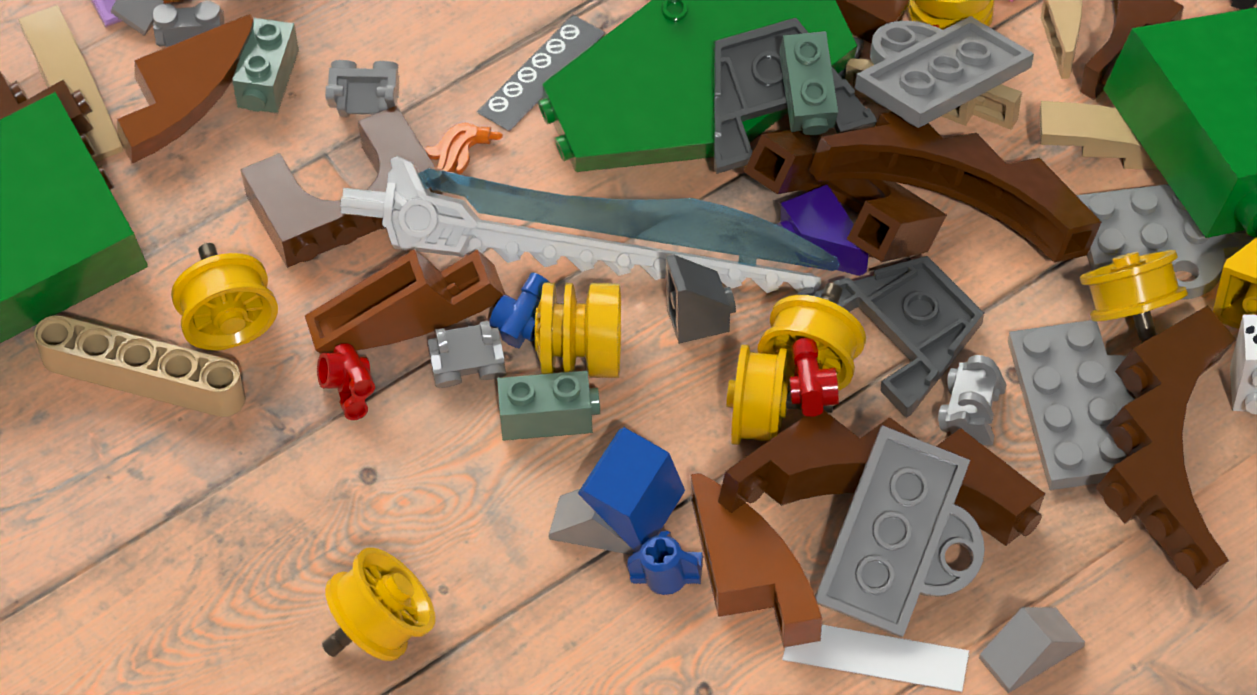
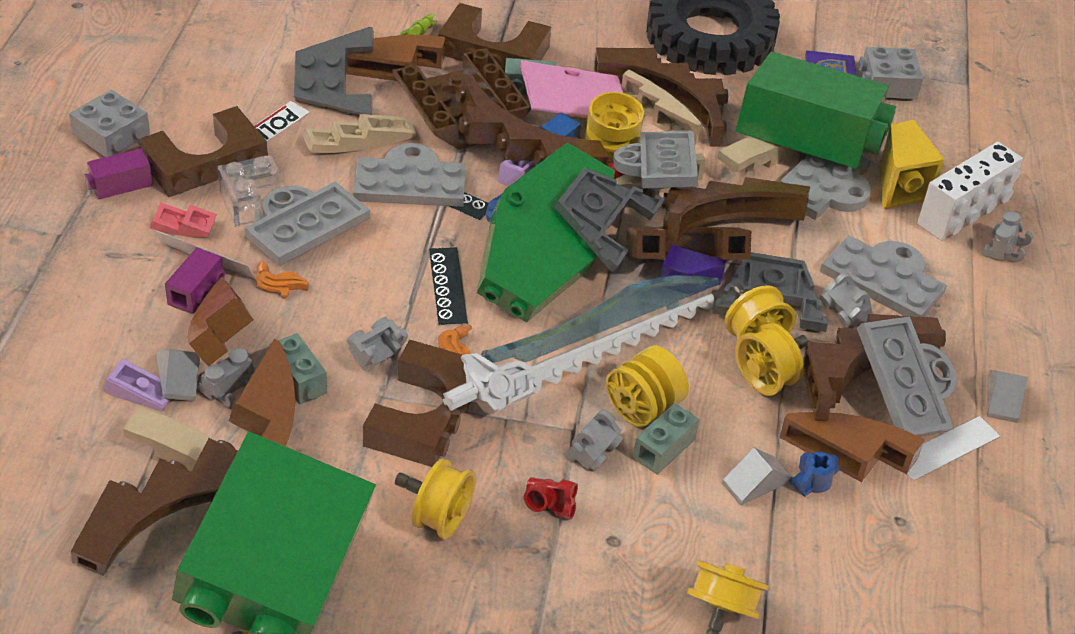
camera: 50 degrees left, 10 degrees down
(112, 360) = (446, 564): tan beam -> none
(405, 302) = (534, 437): dark orange slope -> none
(517, 317) = (596, 397): blue plate -> none
(633, 488) = (767, 442): blue slope -> none
(696, 300) = (678, 337): dark grey slope -> none
(808, 82) = (627, 194): sand green brick -> none
(811, 385) = (802, 330): red plate -> none
(1134, 288) = (859, 207): yellow wheel -> none
(1150, 431) = (940, 261): reddish brown arch -> none

